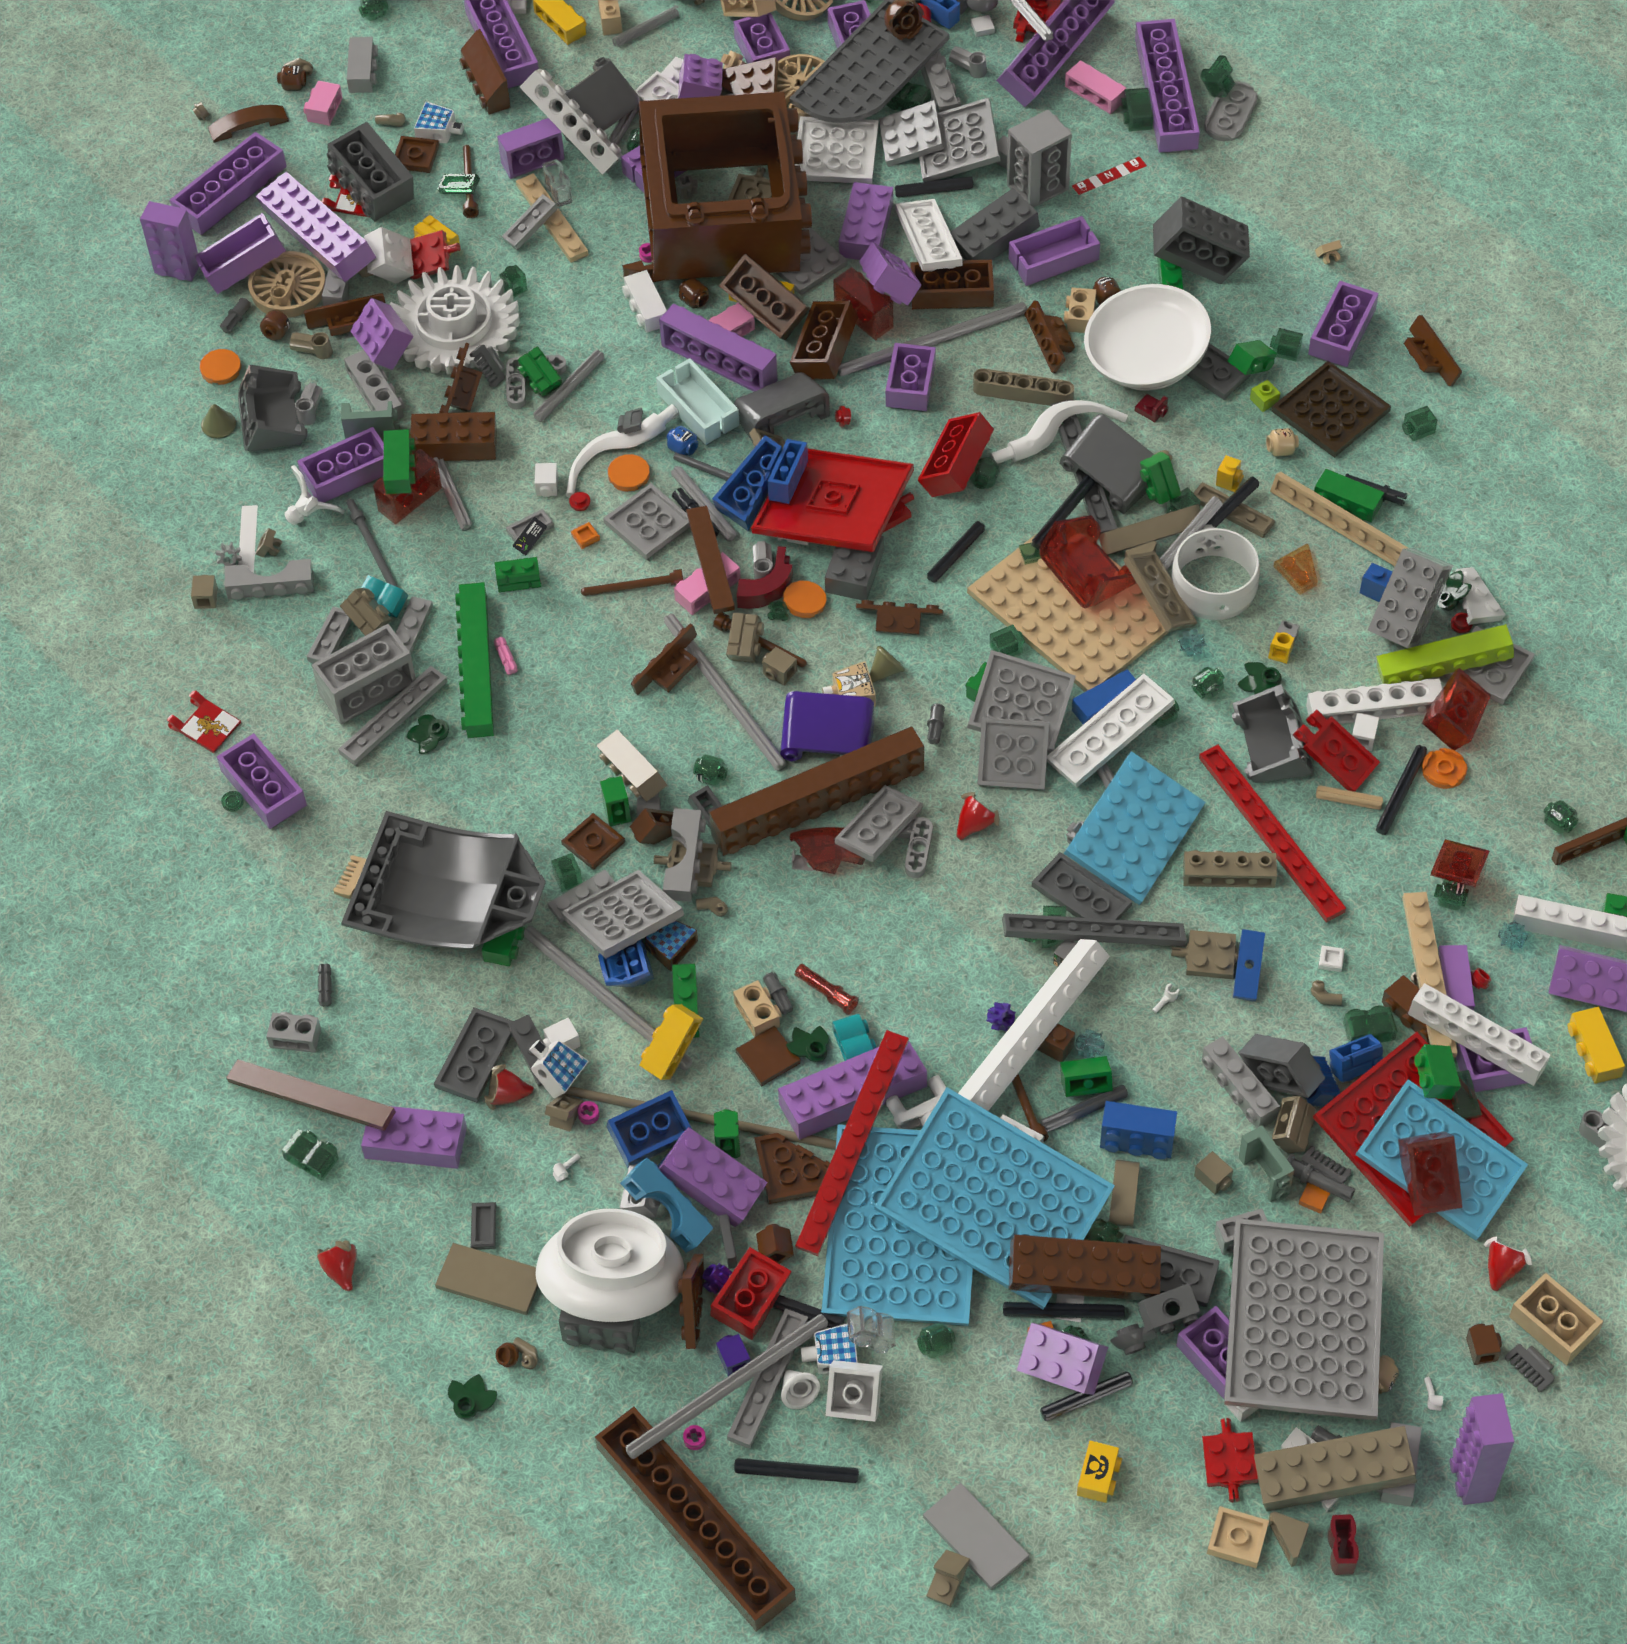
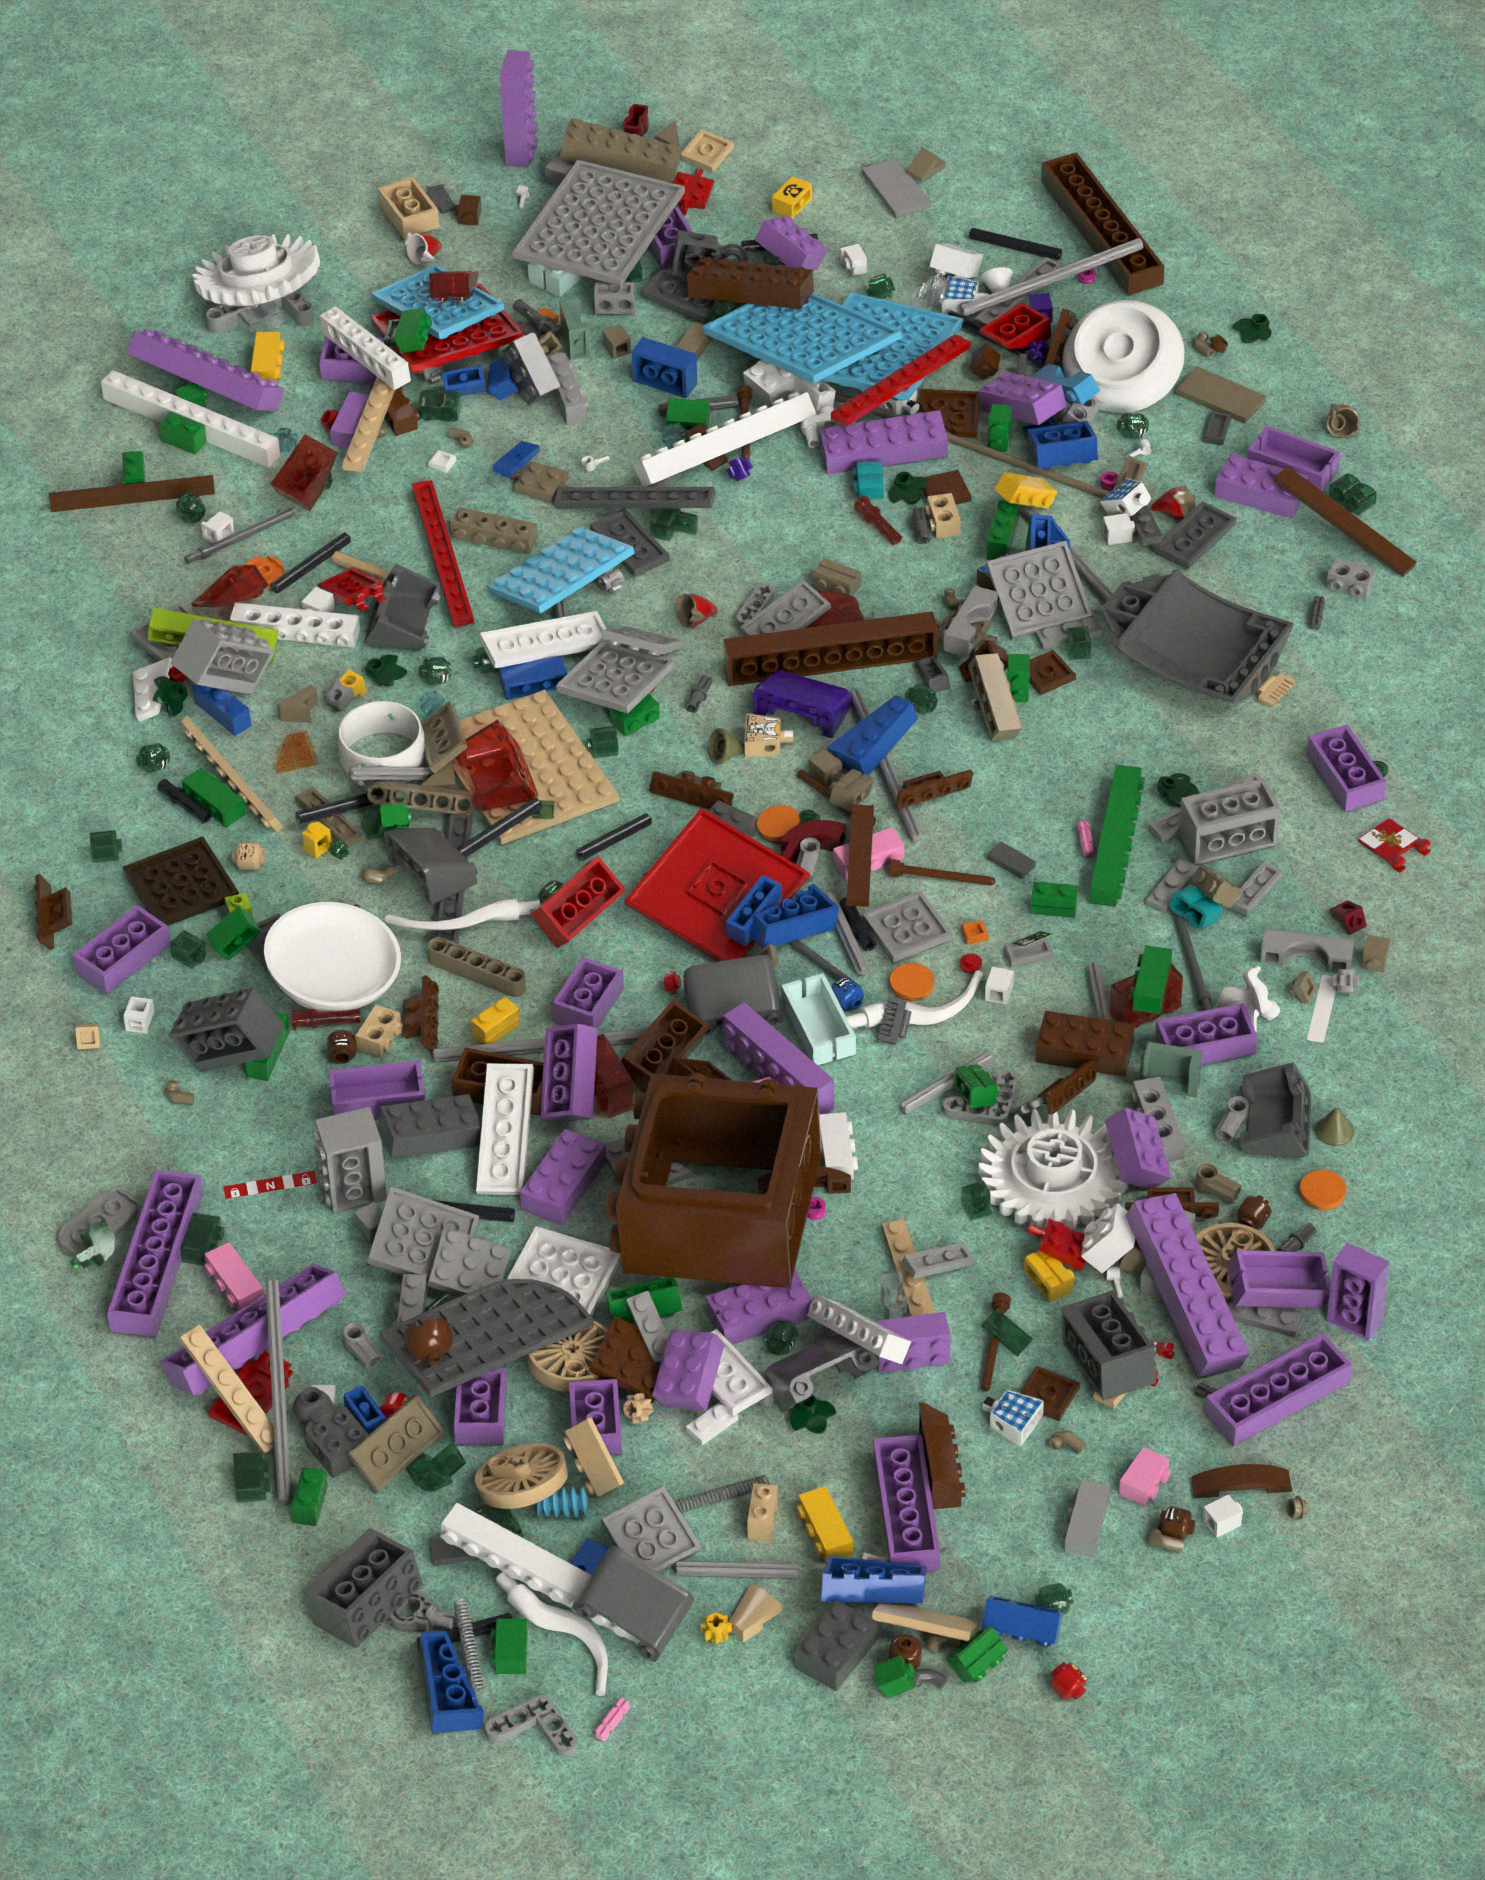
camera: 165 degrees left, 10 degrees down
(237, 628) = (1351, 915): none -> dark red bracket
(257, 89) = (1222, 1515): none -> white brick
(383, 1177) = (1301, 455): none -> medium lavender piece
(571, 617) = (1011, 860): none -> dark grey tile
(579, 1194) = (1132, 425): none -> clear green head
(742, 689) = (874, 736): none -> blue wedge
(844, 896) = (836, 578): none -> dark tan brick
(983, 339) = (495, 1022): none -> yellow brick
(983, 1380) = (853, 259): none -> white brick
(1204, 473) = (338, 849): none -> clear green plate
(1296, 281) = (138, 1014): none -> white brick
(1321, 609) = (298, 706): none -> dark tan slope
(1428, 522) = (153, 757): none -> clear green head
(1517, 776) = (205, 551): none -> dark grey bar
(1519, 801) = (217, 527): none -> white brick

